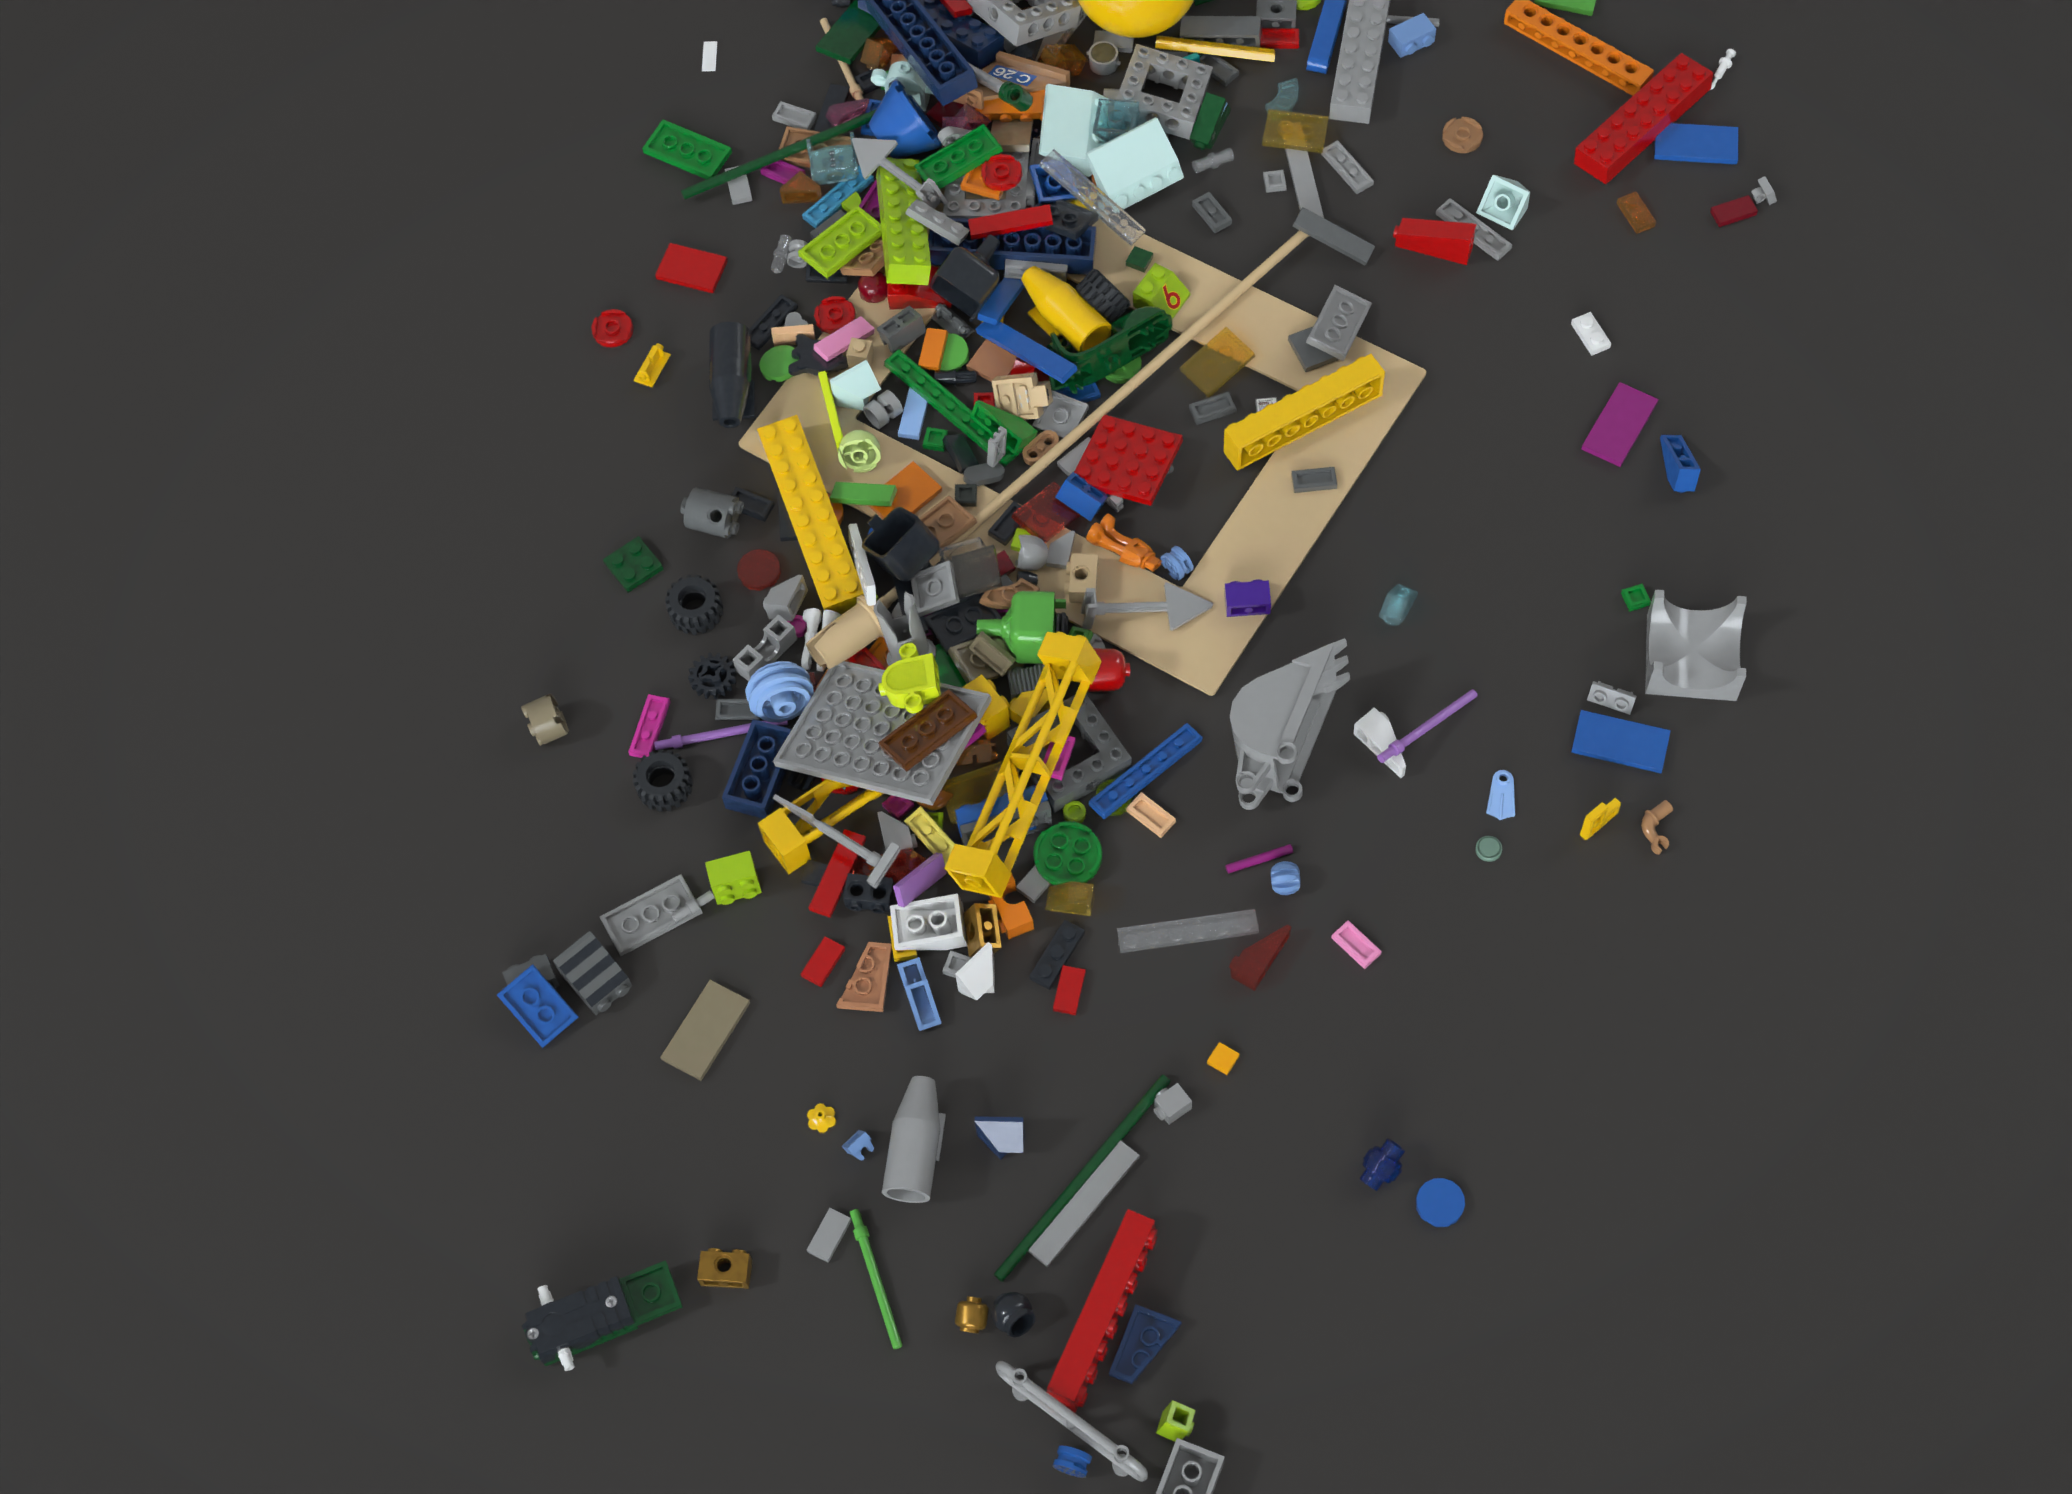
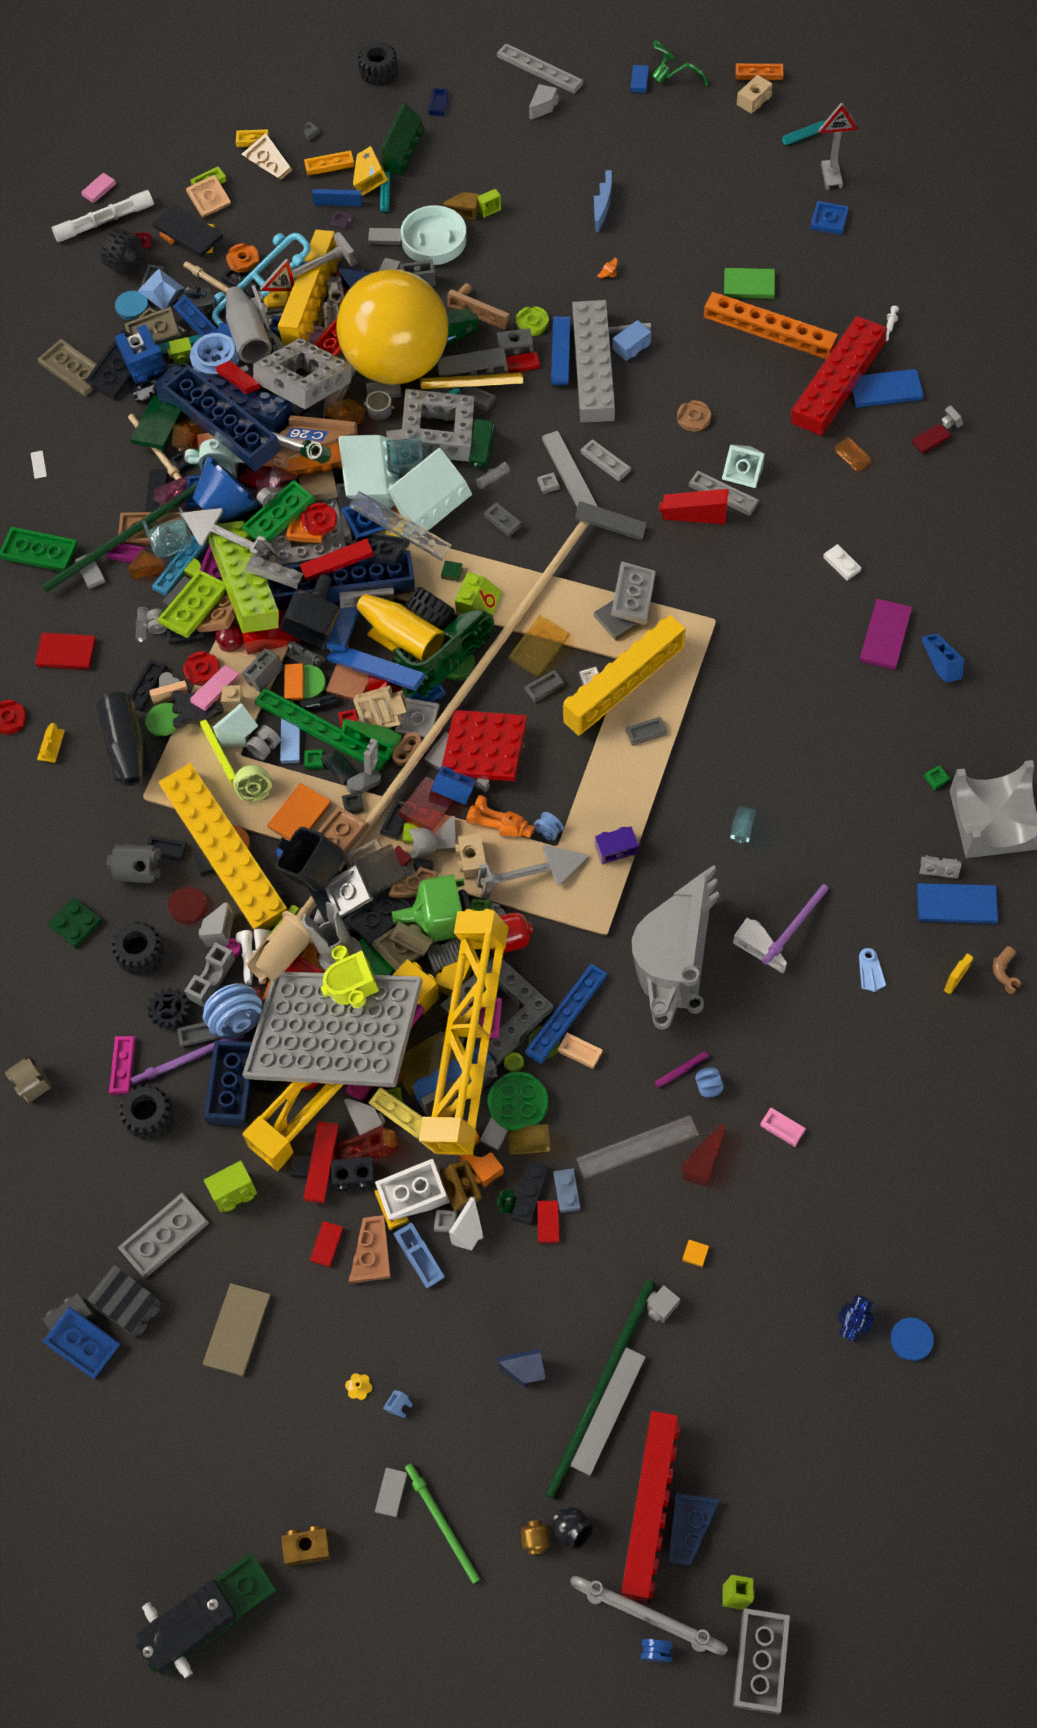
camera: 15 degrees left, 0 degrees up
(692, 906) = (199, 1220): light grey bar -> none
(794, 116) = (124, 502): light grey tile -> none
(862, 565) = (279, 884): white tile -> none
(863, 494) = (264, 820): bright green tile -> none
(880, 863) = (358, 1146): light grey piece -> none
(914, 1143) = (448, 1393): light grey piece -> none
(919, 879) = (395, 1153): medium lavender tile -> none
(927, 730) = (374, 1020): reddish brown tile -> none
(982, 750) = (422, 1026): clear orange hinge -> none
(1028, 957) = (506, 1201): none -> dark green plant
(1098, 961) = (566, 1190): none -> sand blue plate
(1286, 96) = (539, 414): clear light blue tile -> none
(1295, 131) = (555, 438): clear yellow tile -> none
(1488, 848) = (871, 1019): sand green piece -> none

